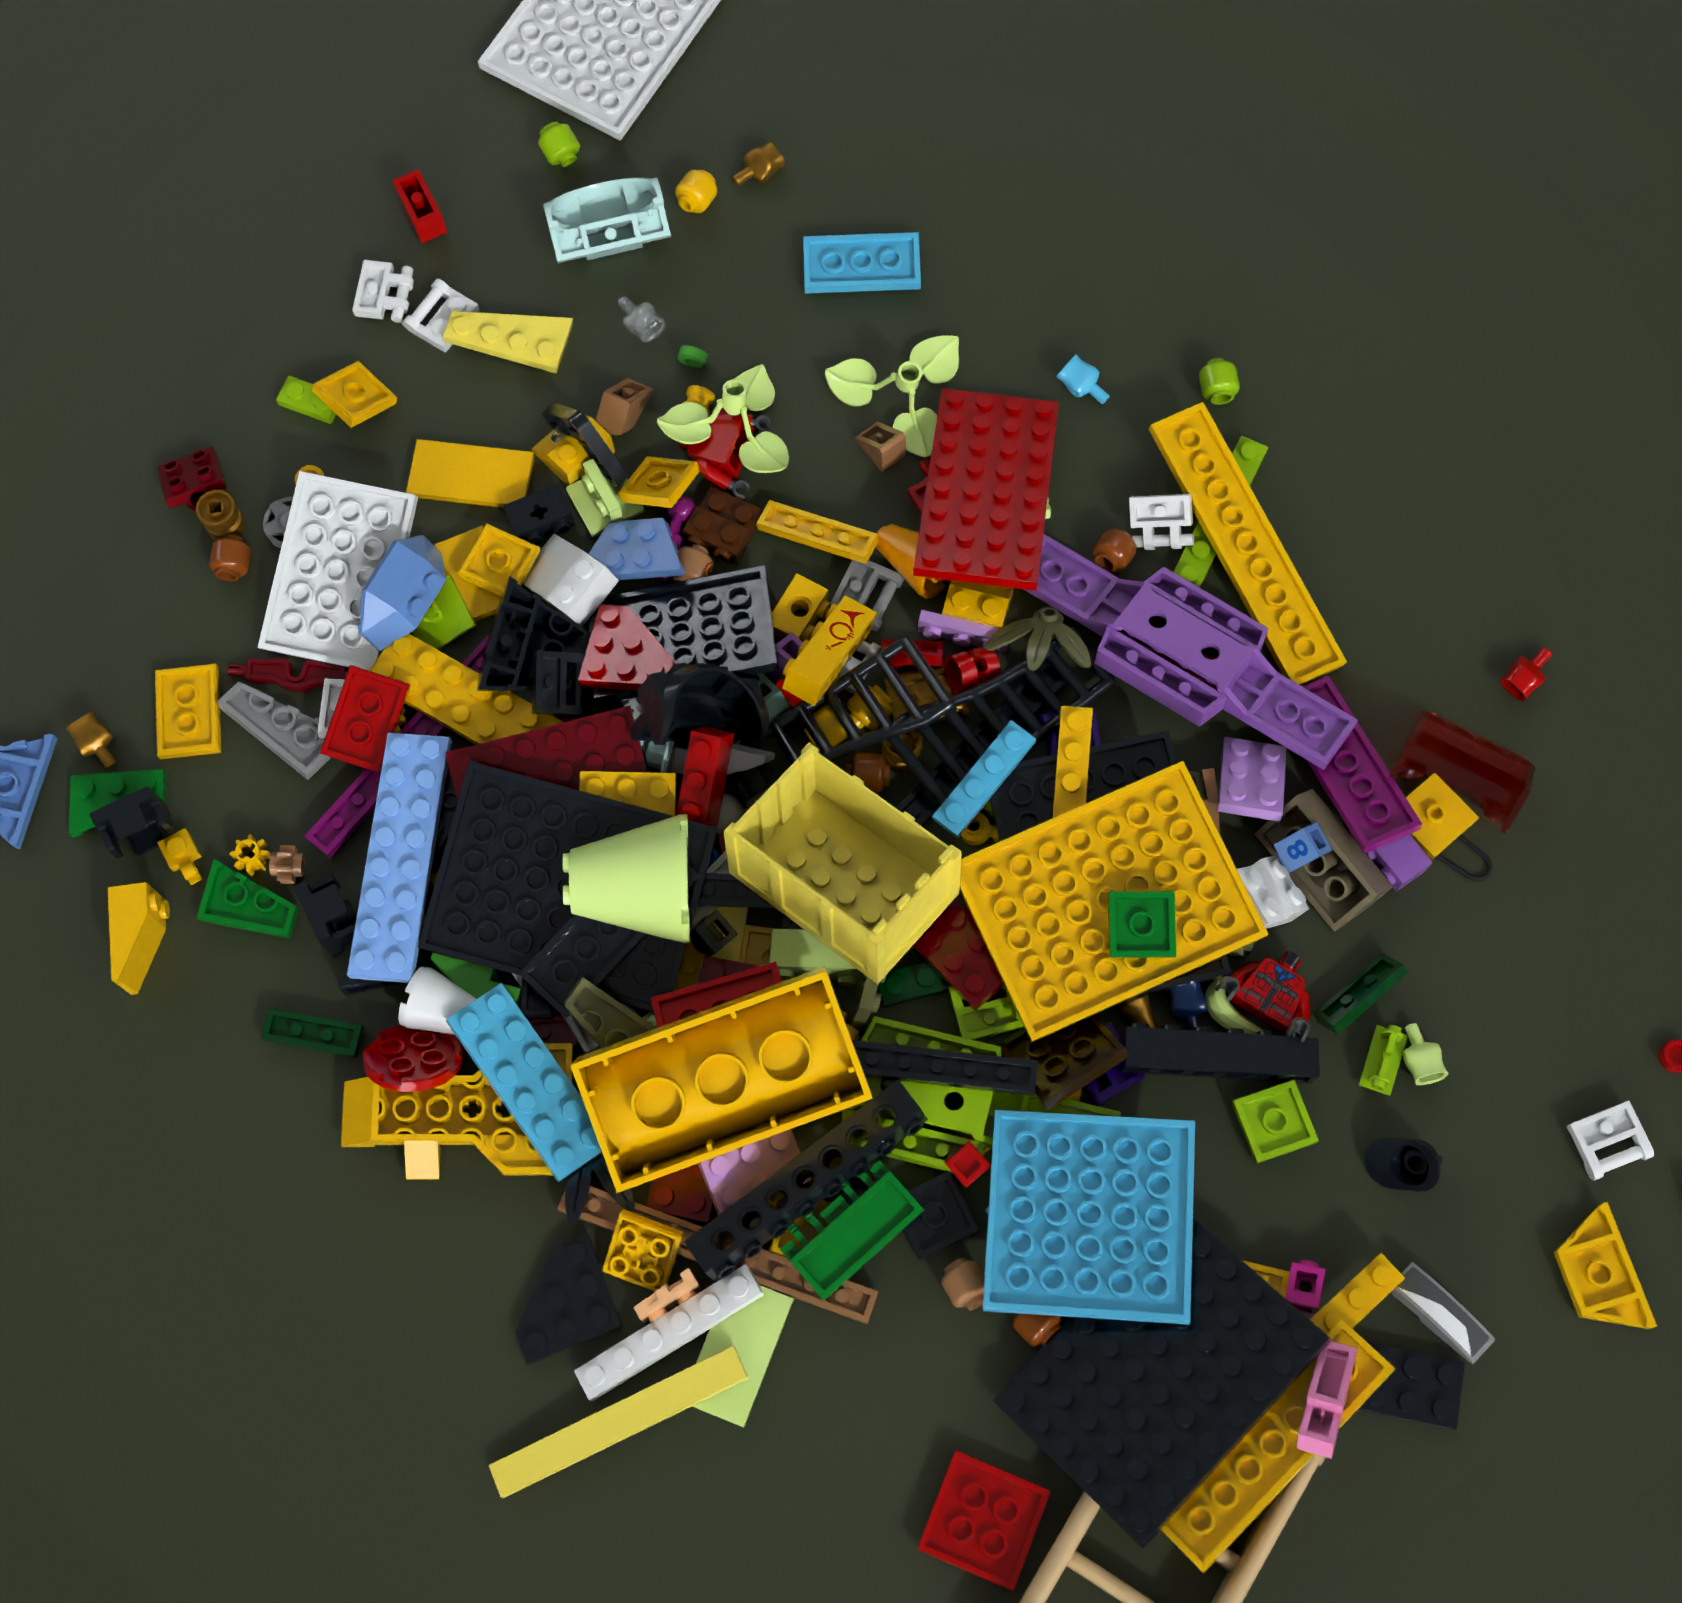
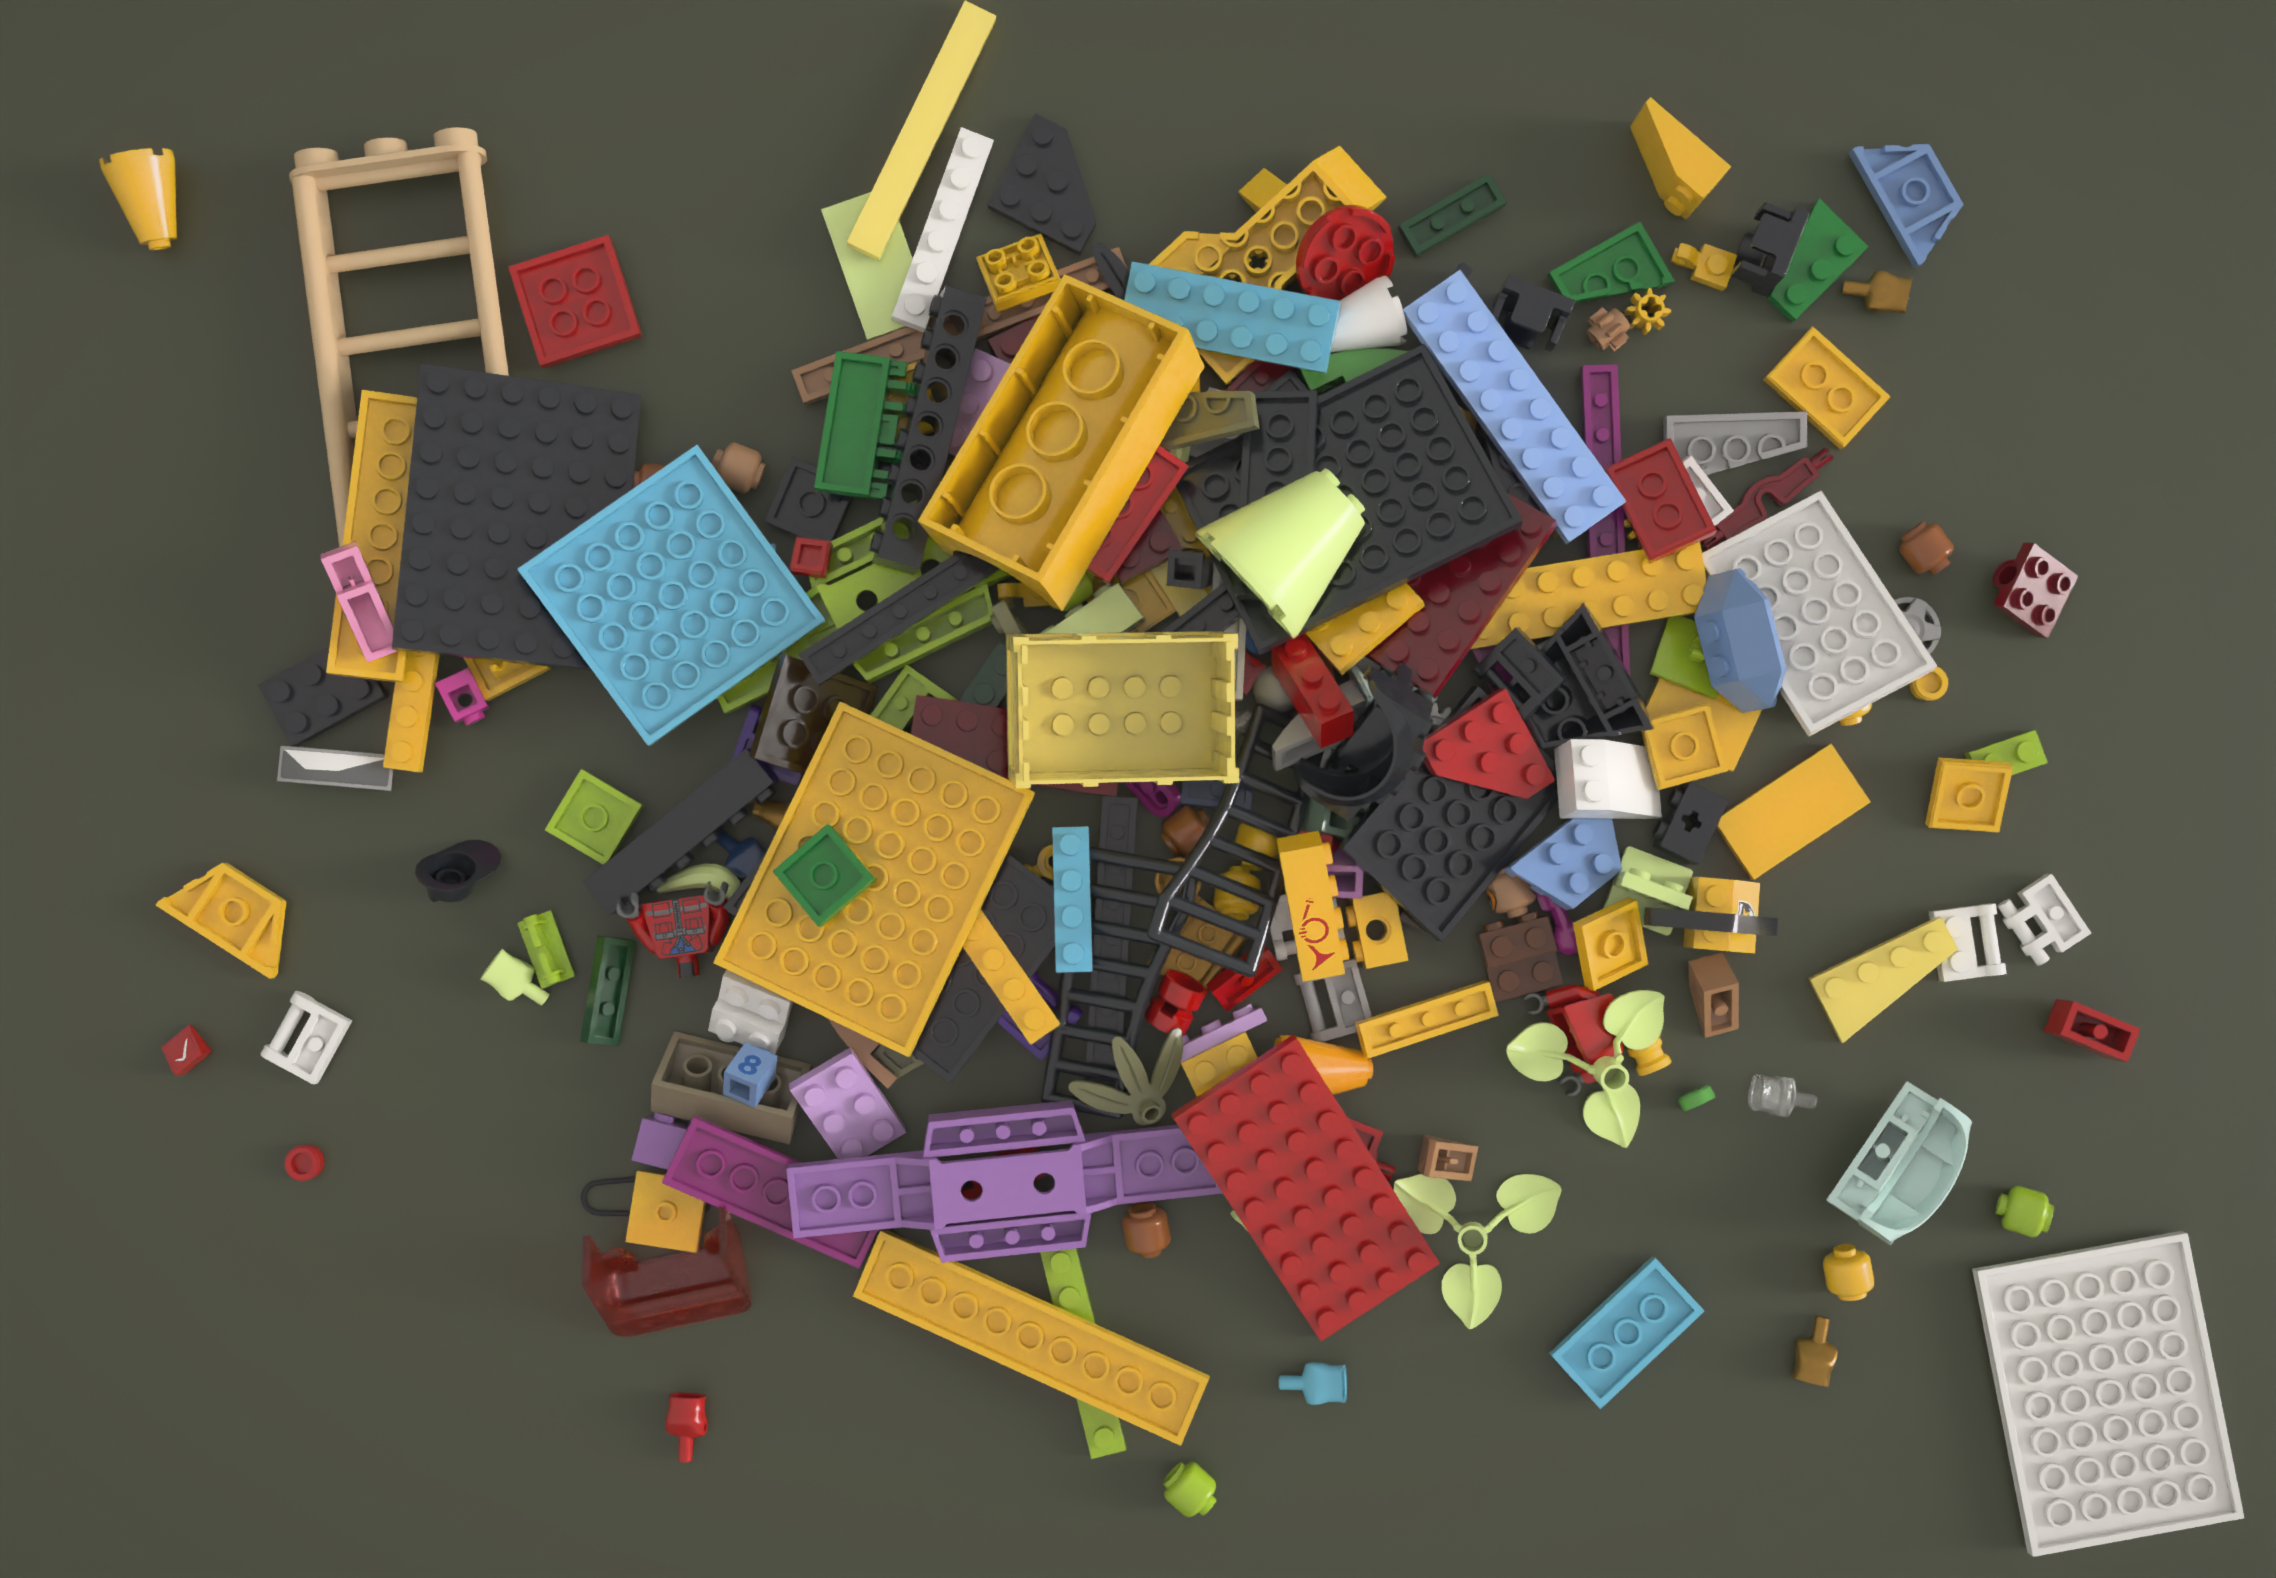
camera: 135 degrees right, 15 degrees up
(220, 514) = (1972, 576): pearl gold wheel -> none
(667, 1297) = (969, 244): light nougat wing -> none
(1161, 511) = (1131, 1301): white plate -> none

